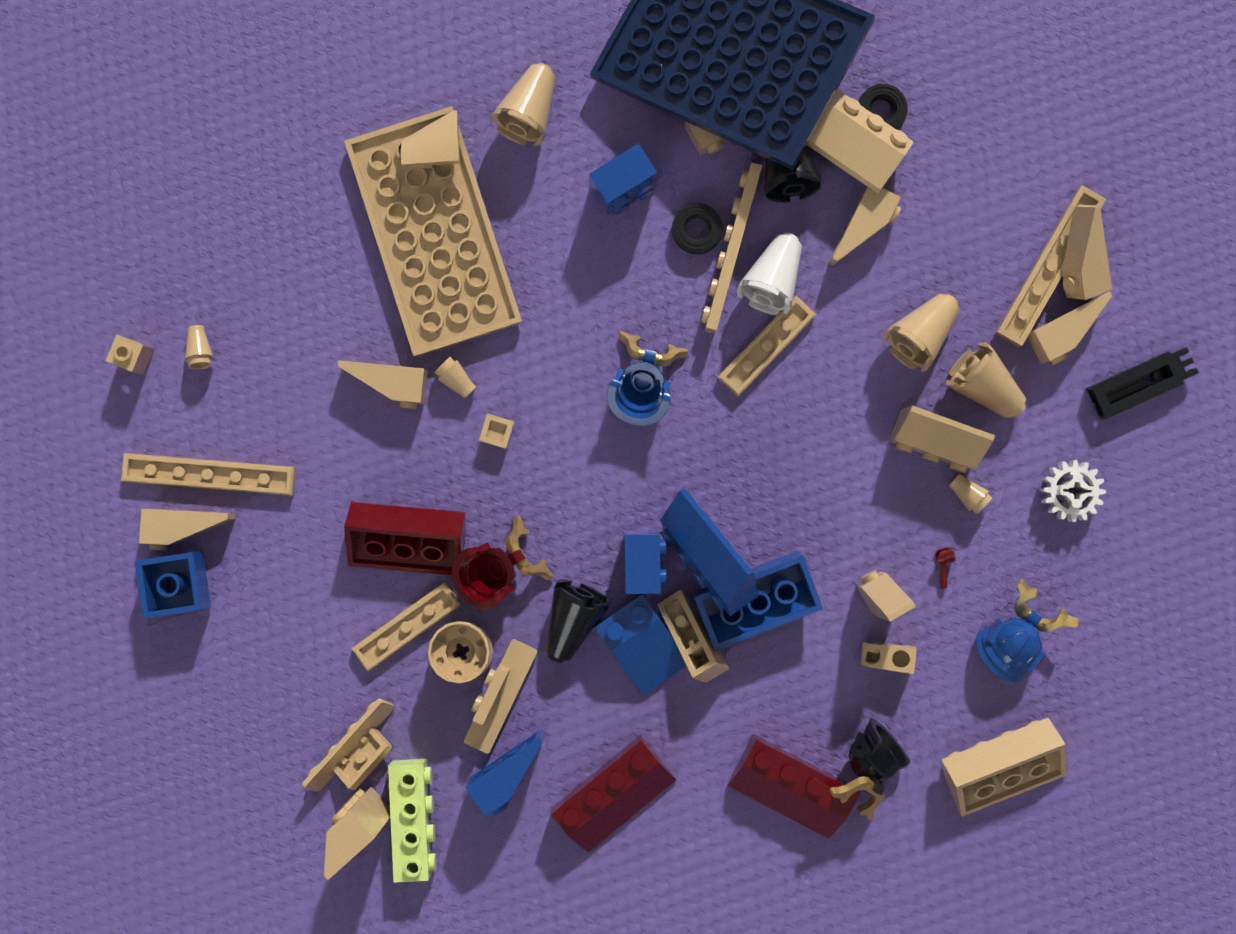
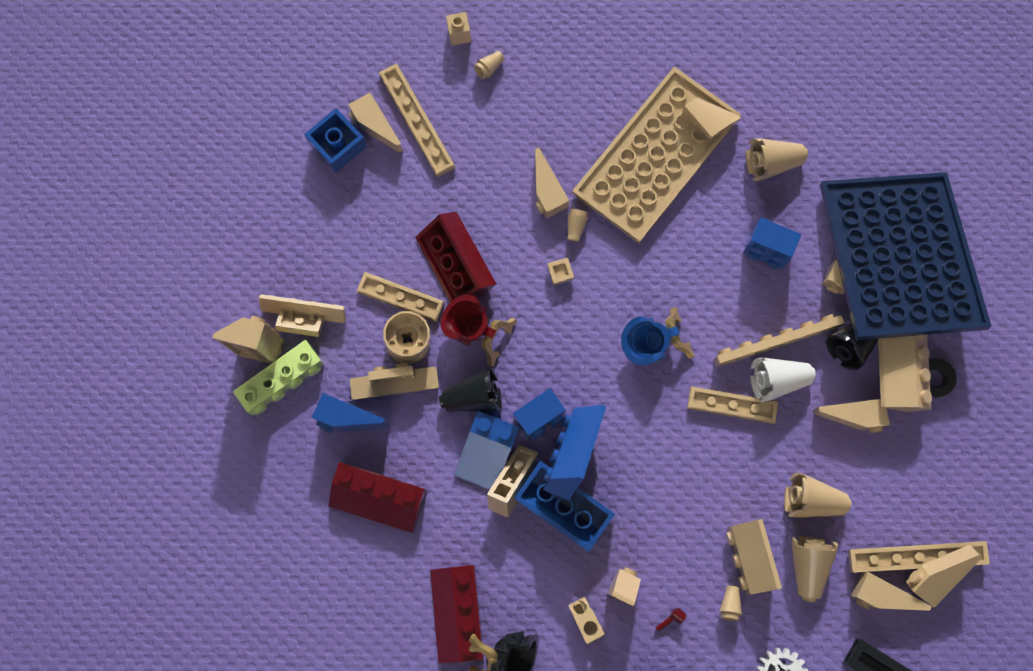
camera: 65 degrees right, 10 degrees down
(693, 211) = (774, 298): black tyre -> none

